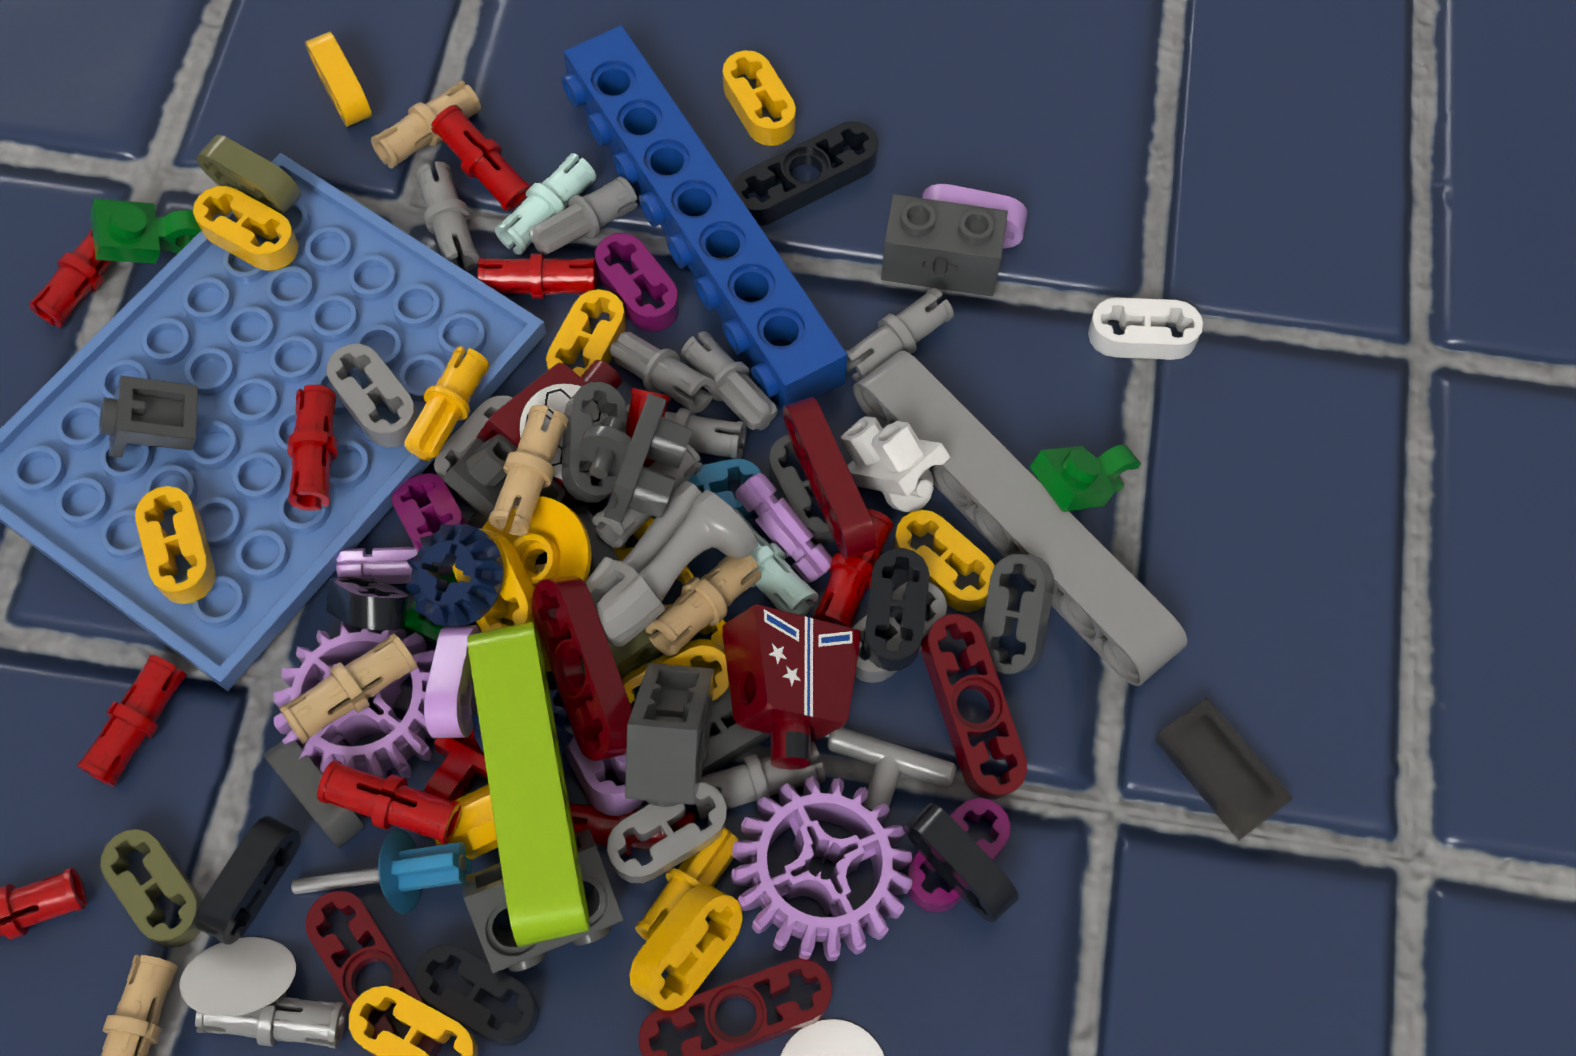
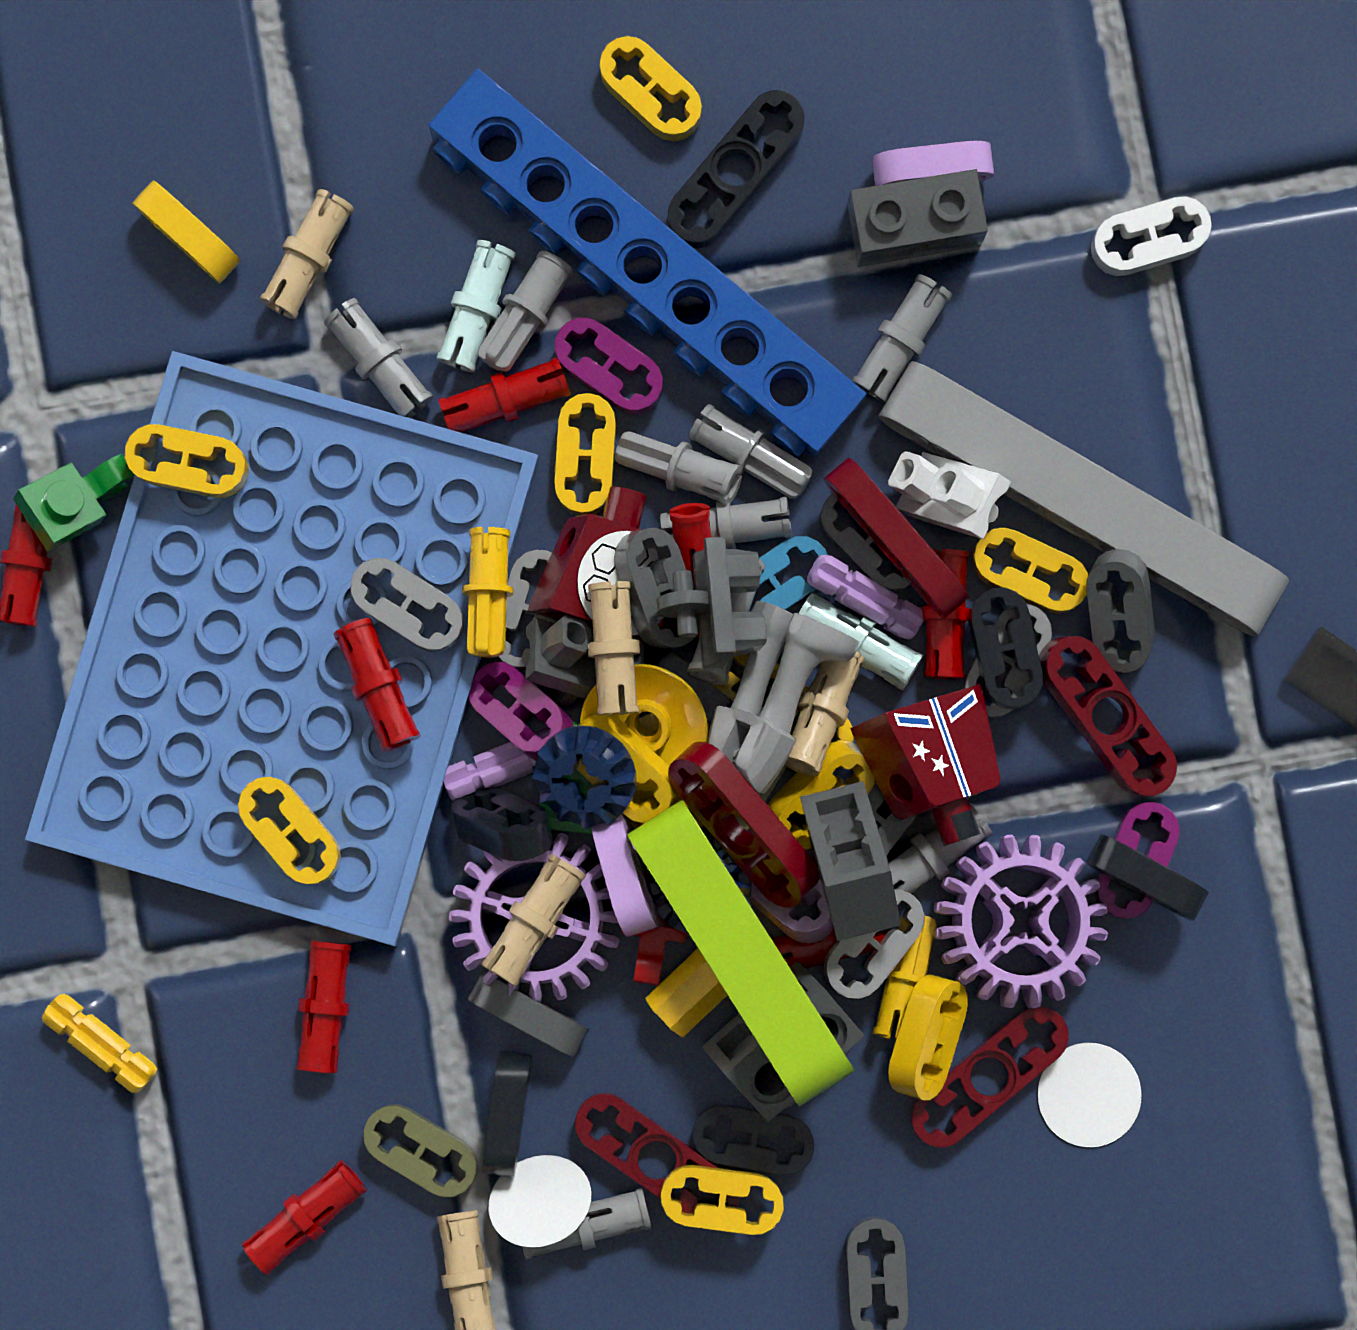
camera: 20 degrees left, 20 degrees up
(149, 415) = (200, 710): dark grey bracket -> none
(248, 172) = (164, 403): olive beam -> none
(389, 802) = (662, 1006): red pin -> none
(400, 871) = (646, 1059): dark azure piece -> none
(480, 157) = (388, 280): red pin -> none
(889, 763) = (1045, 793): light grey piece -> none
(1079, 478) = (1140, 446): green plate -> none

